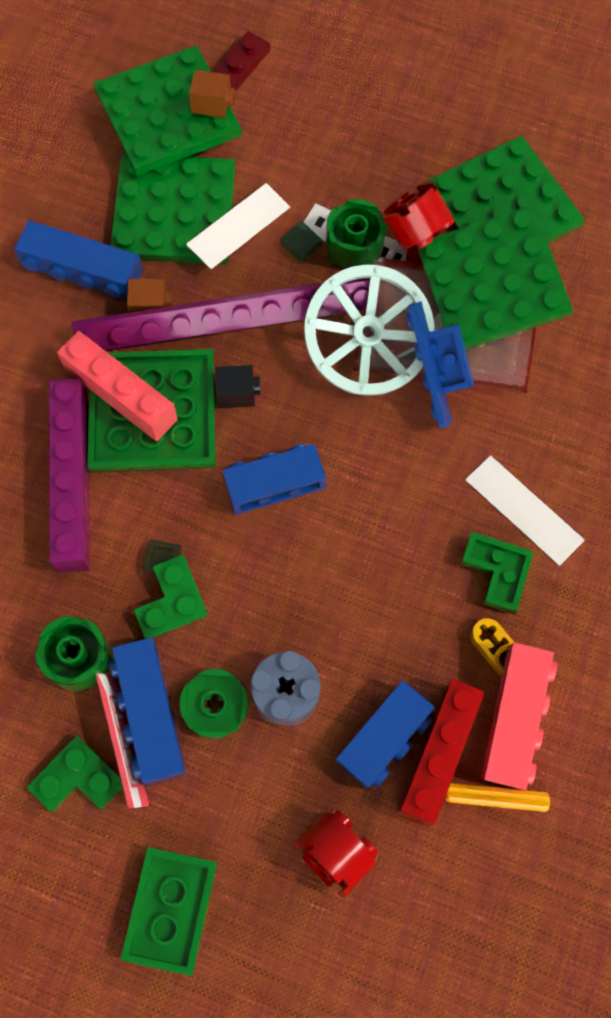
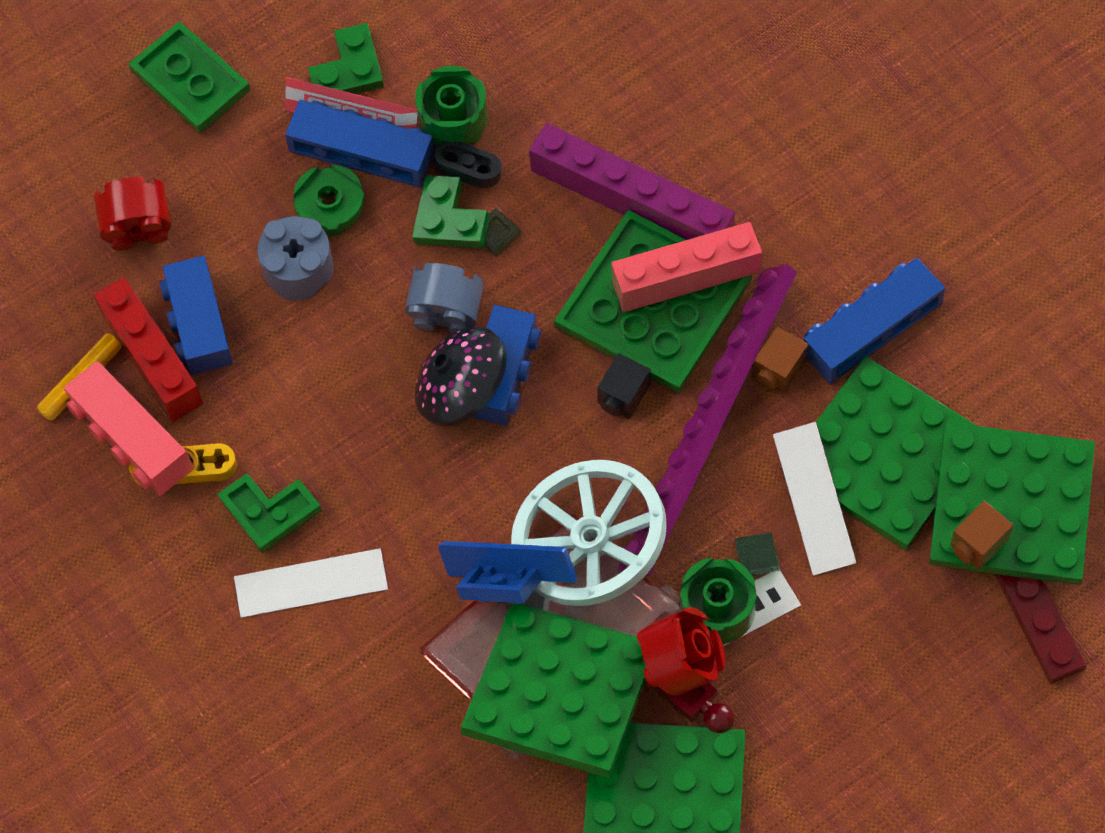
camera: 130 degrees right, 5 degrees down
(116, 615) = (471, 164): none -> black plate
(251, 545) = (443, 297): none -> sand blue brick
(295, 476) = (460, 376): none -> black dish

